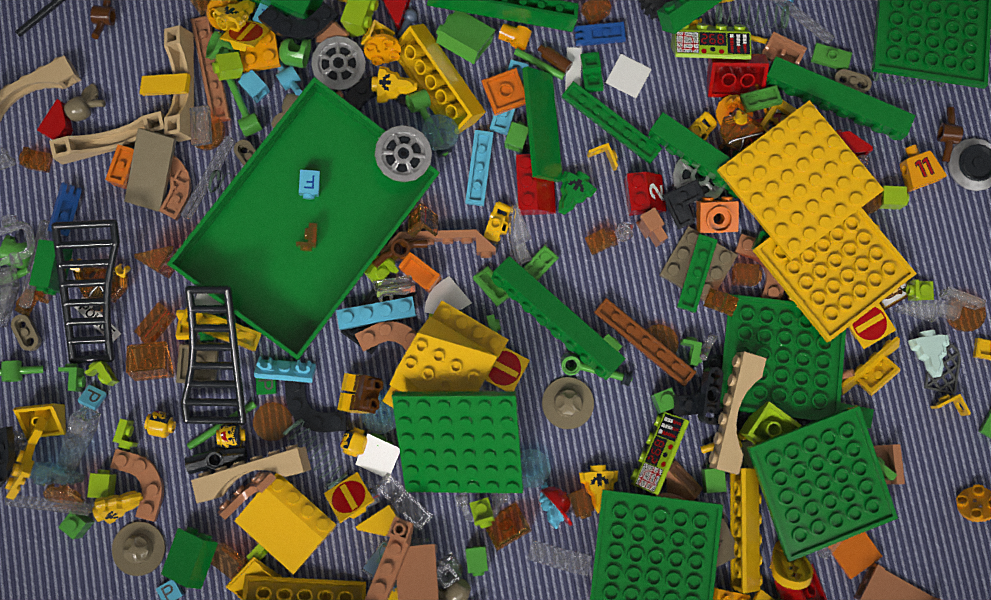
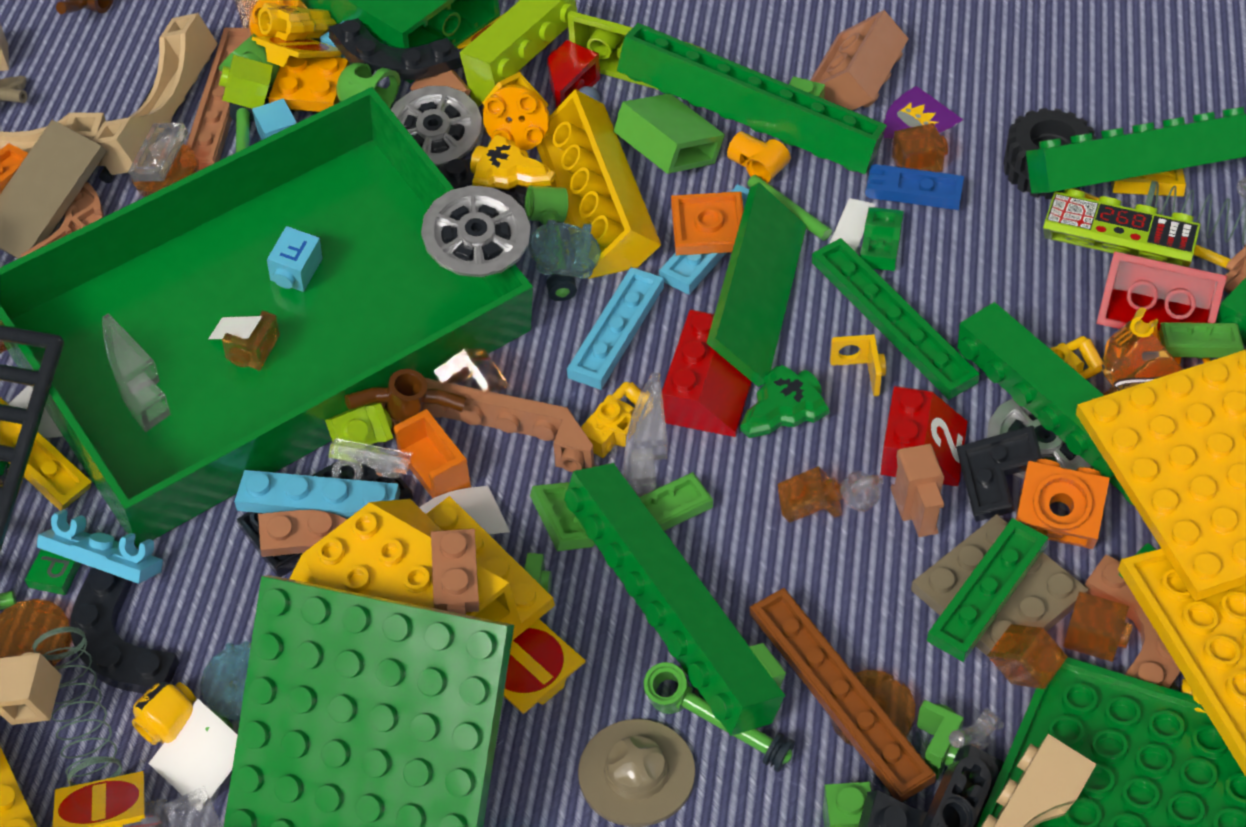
camera: 20 degrees right, 30 degrees down
(165, 84) = (134, 91): yellow tile -> none
(258, 275) = (134, 375): none -> clear slope
(297, 233) = (236, 326): none -> white sticker
(366, 394) = (214, 619): reddish brown hips -> none
(474, 363) = (455, 571): none -> nougat plate
(517, 137) = (700, 291): bright green brick -> none
(555, 58) = (821, 203): reddish brown cylinder -> none
(628, 76) = (950, 262): white sticker -> none

